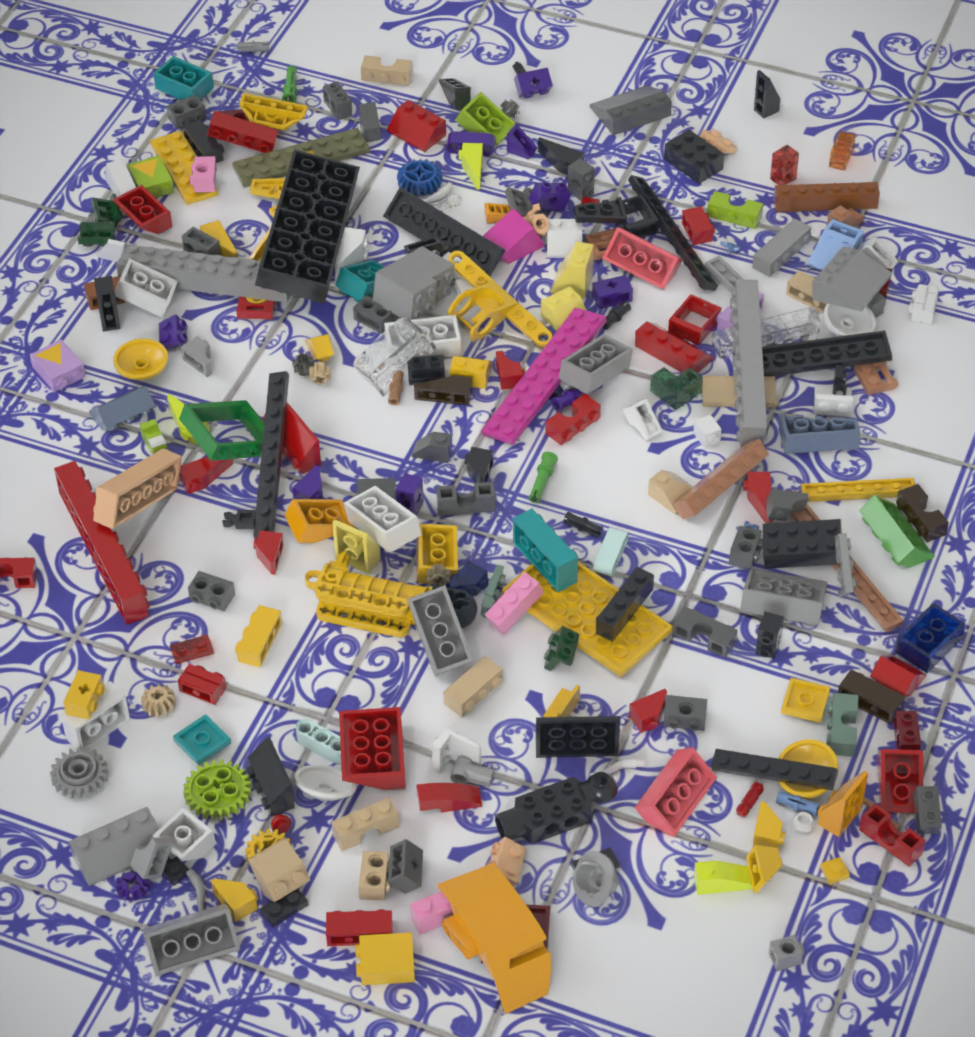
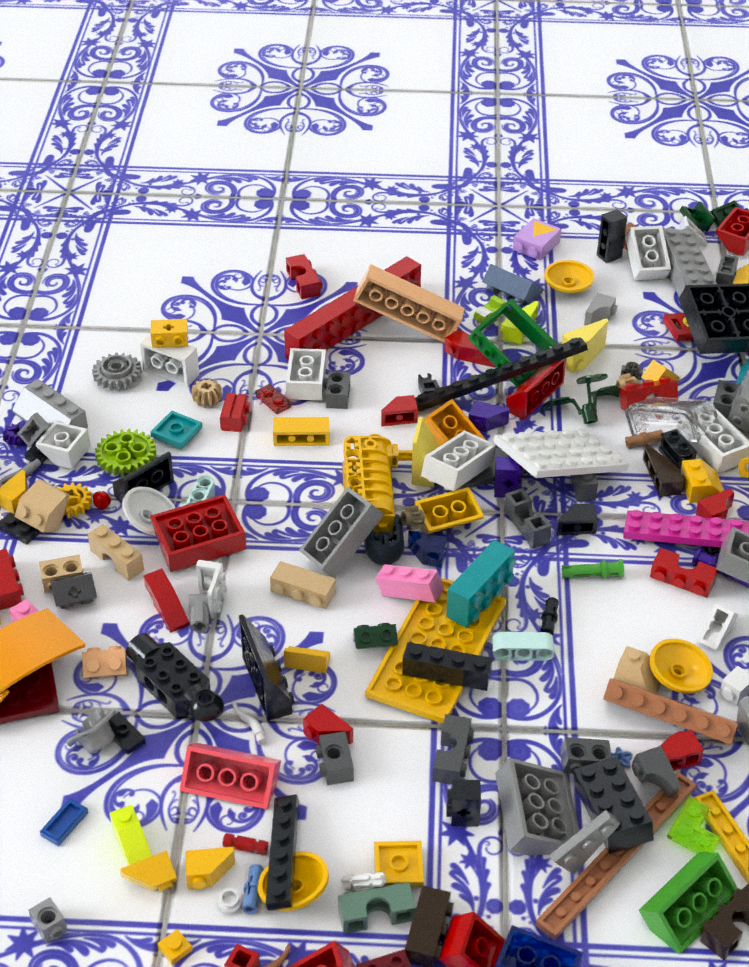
camera: 70 degrees right, 5 degrees down
(173, 332) = (620, 289): dark purple bracket -> none
(178, 608) = (306, 374): none -> white brick
(256, 380) = (595, 338): none -> light yellow slope
(342, 369) = (637, 392): none -> red arch
(344, 411) = (588, 410): none -> dark green plant
(404, 445) = (560, 453): none -> white plate
(492, 592) = (444, 566): sand green hinge -> none
(679, 455) = (681, 666): none -> yellow dish
(680, 928) = (64, 822): none -> blue tile
(818, 723) = (363, 880): none -> white axle
(828, 509) = (688, 830): none -> clear neon green plate
(843, 805) = (250, 928): light orange slope -> none

